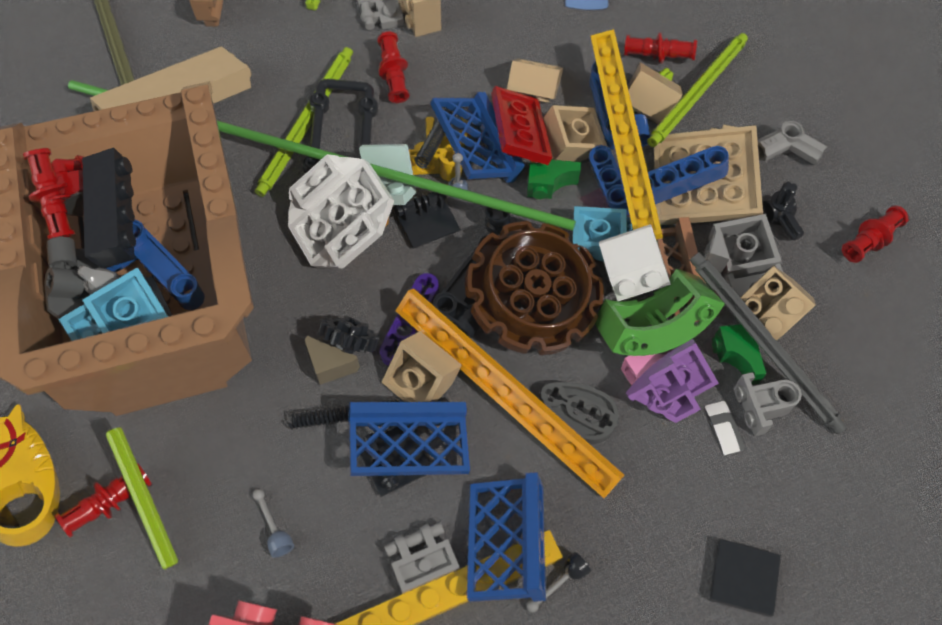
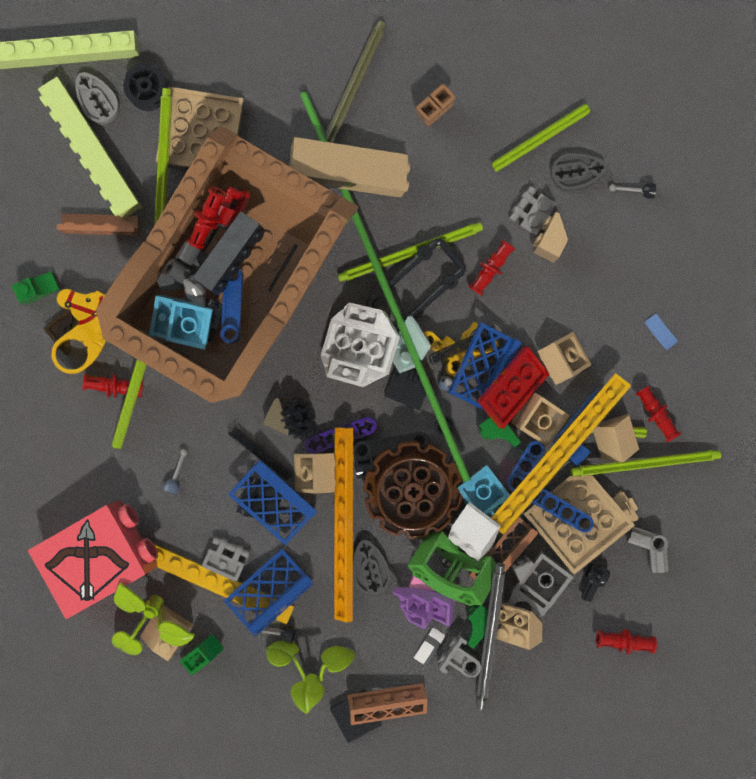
camera: 50 degrees right, 25 degrees up
(669, 586) = (311, 691): none -> lime plant
(755, 516) = (387, 701): none -> nougat fence

